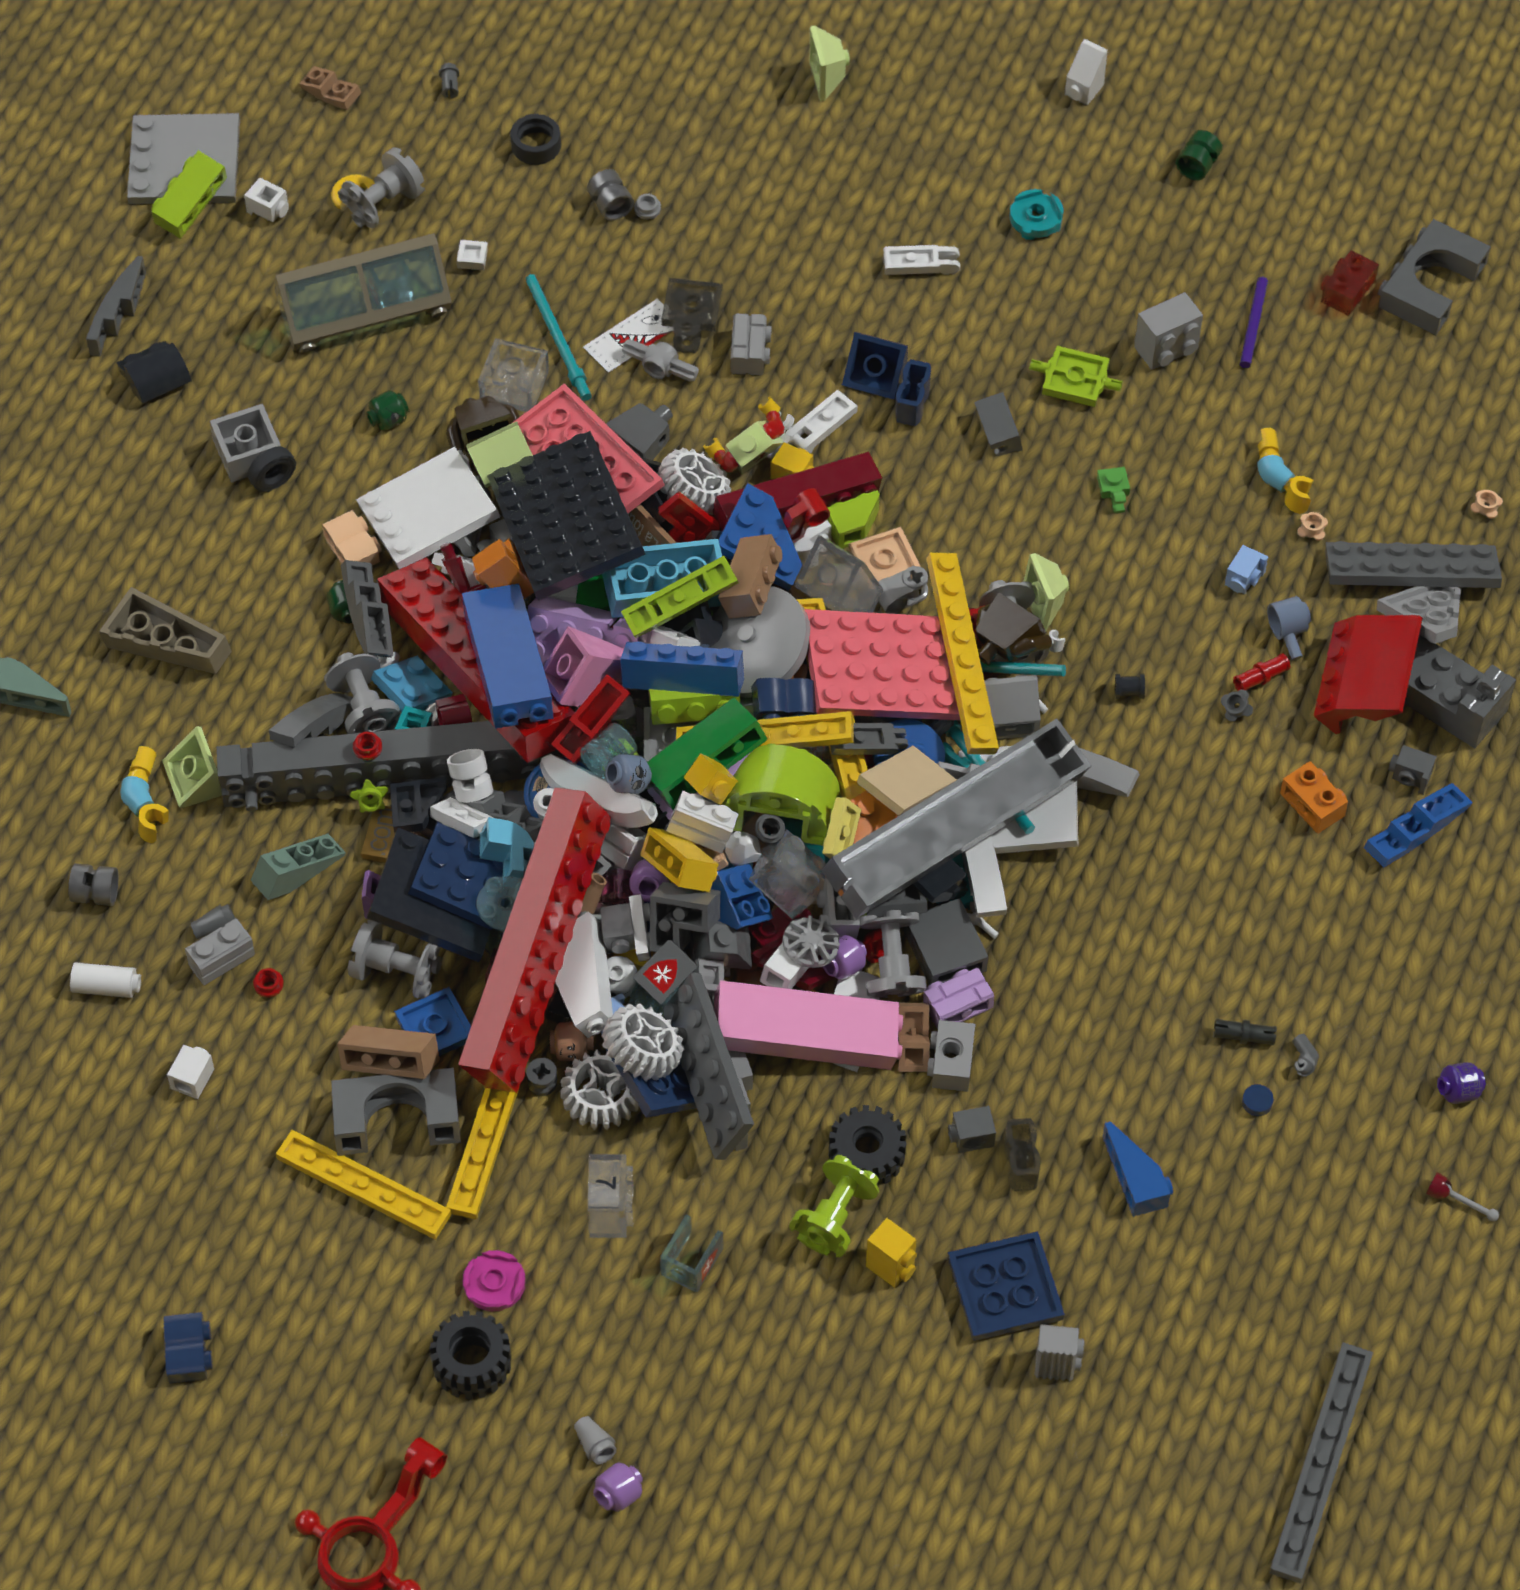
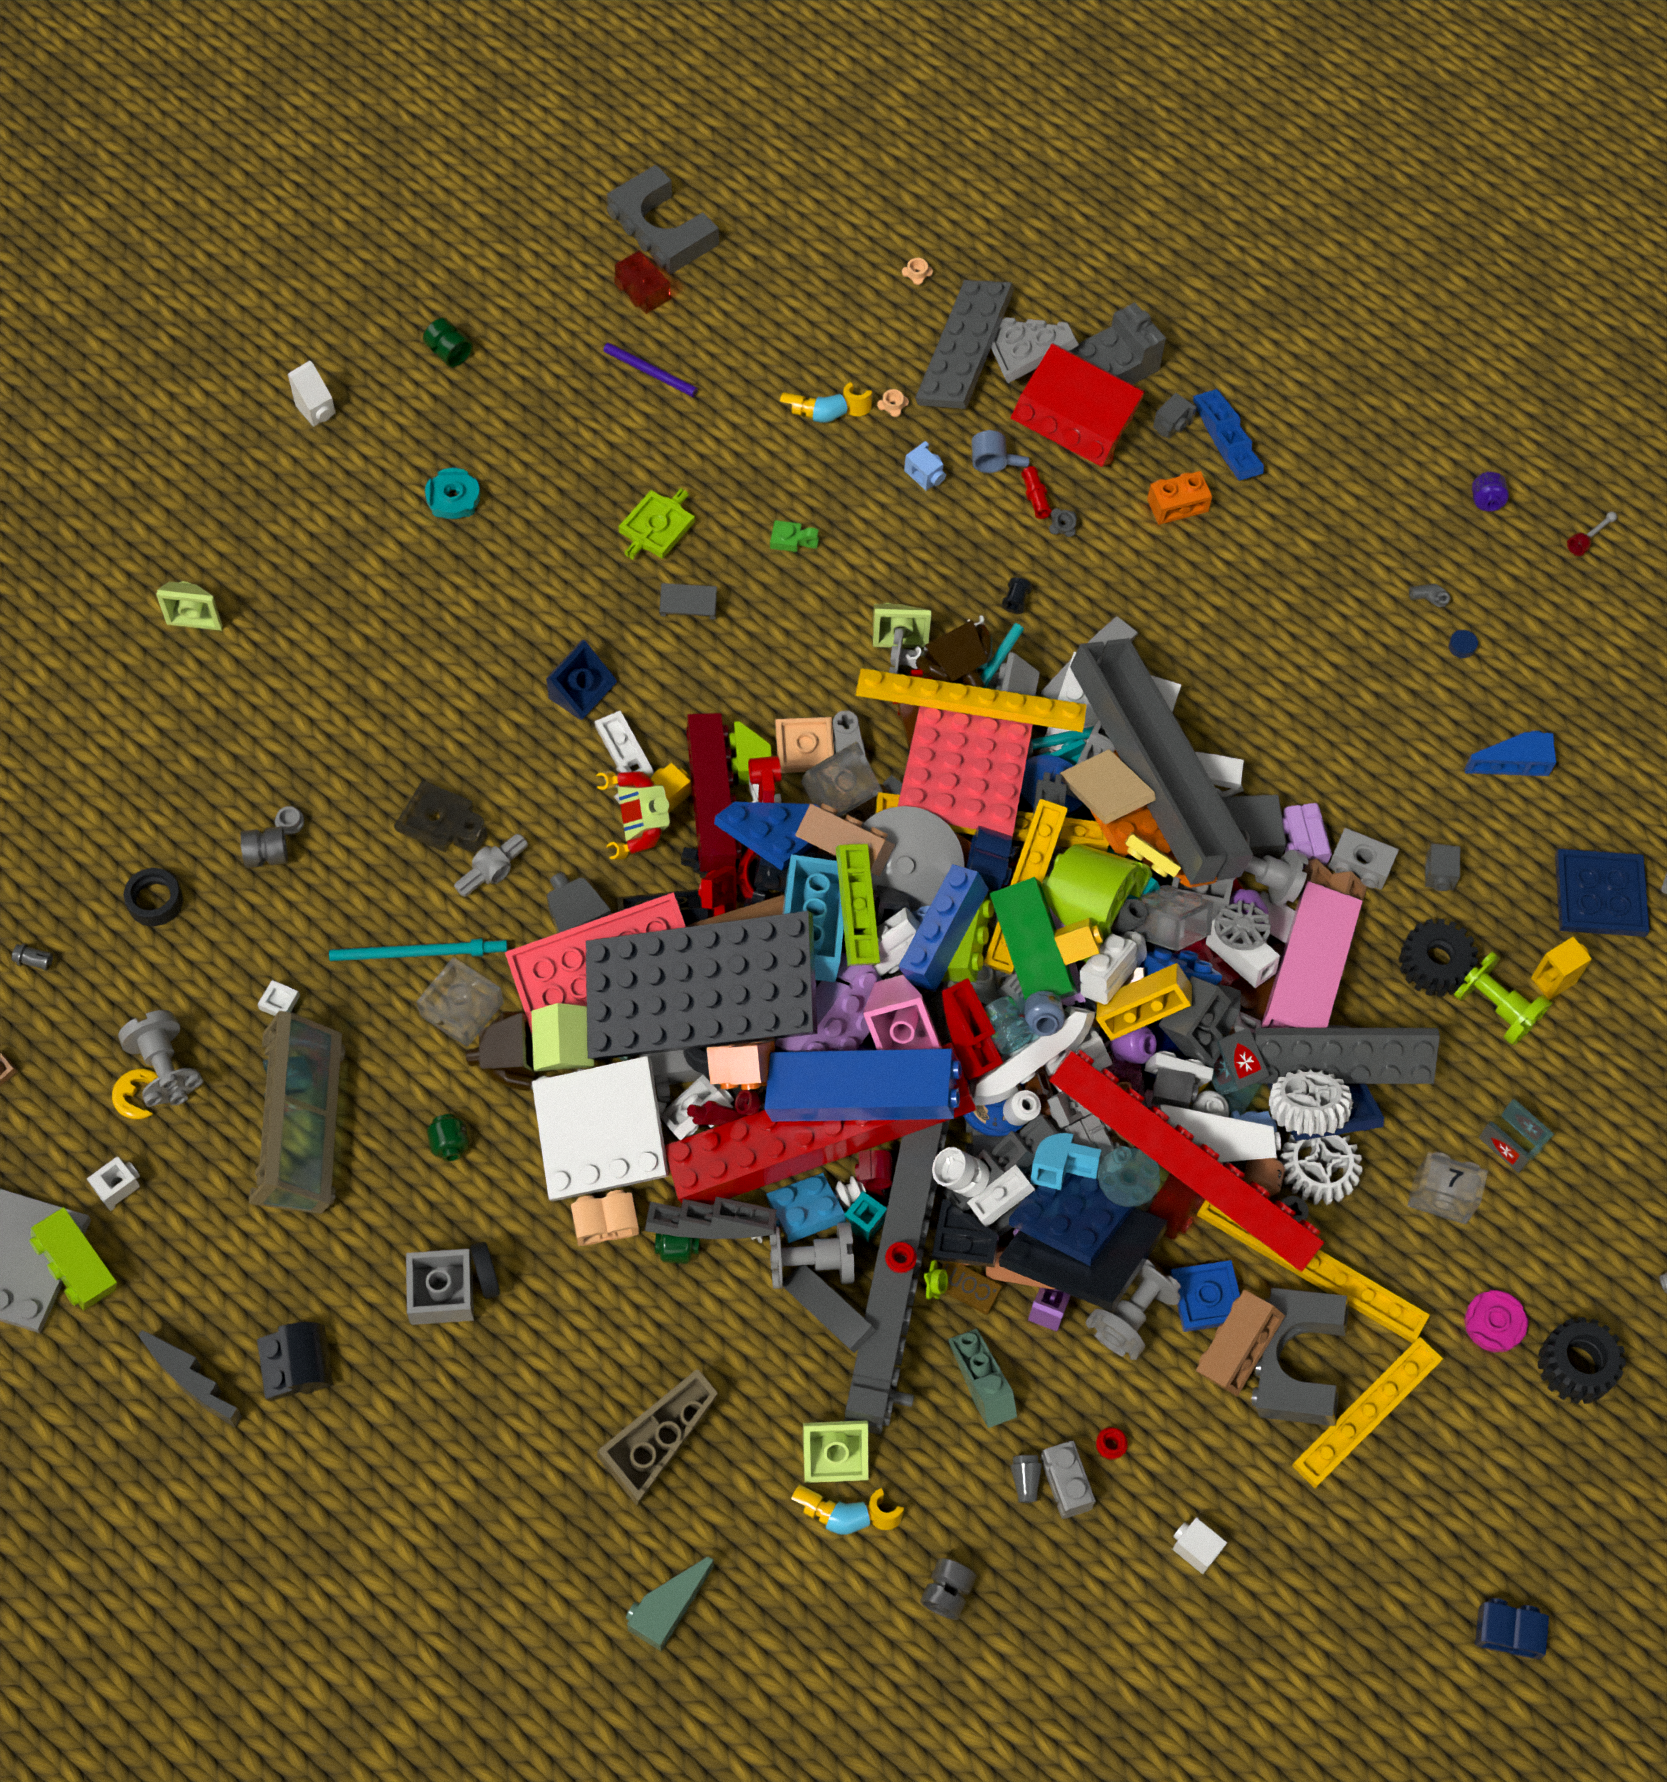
camera: 75 degrees left, 5 degrees up
(104, 980) = (1065, 1607): white brick -> none
(641, 327) = (436, 877): white sticker -> none
(694, 477) = (661, 873): white gear -> none
(748, 344) = (505, 780): light grey brick -> none
(913, 392) = (628, 657): dark blue brick -> none
(921, 259) = (464, 607): white hinge -> none
(1022, 1154) = (1485, 835): clear smoke brick -> none
(1168, 331) = (648, 430): light grey brick -> none
(1244, 1031) = (1396, 629): pearl dark grey pin -> none

